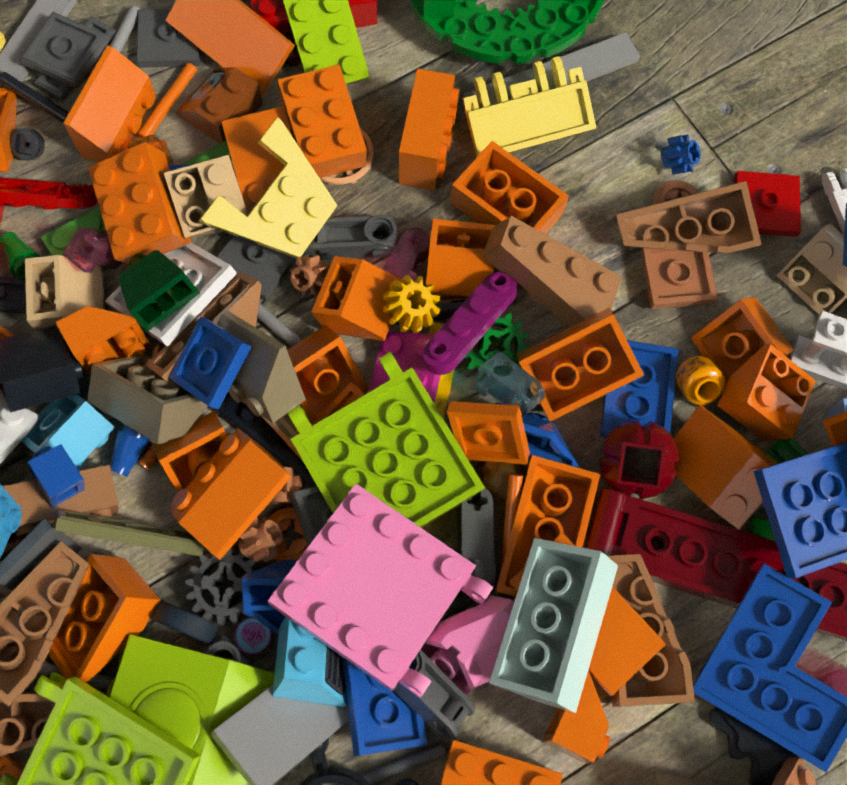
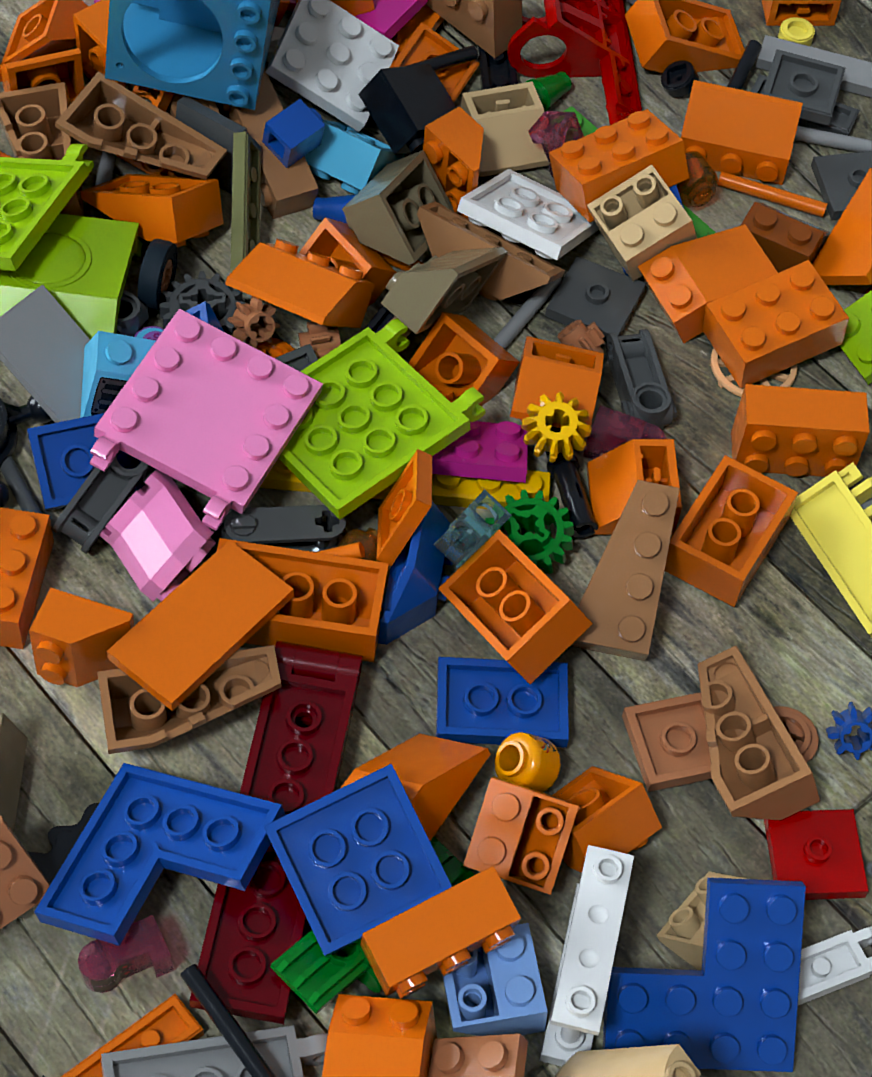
camera: 80 degrees right, 15 degrees down
(154, 288) = (517, 185): dark green torso -> none
(210, 362) = (438, 236): blue plate -> none
(289, 209) = (649, 297): light yellow wing -> none
(469, 323) = (545, 488): magenta plate -> none
(554, 624) = (178, 573): light aqua slope -> none
(639, 435) = (411, 704): dark red piece -> none

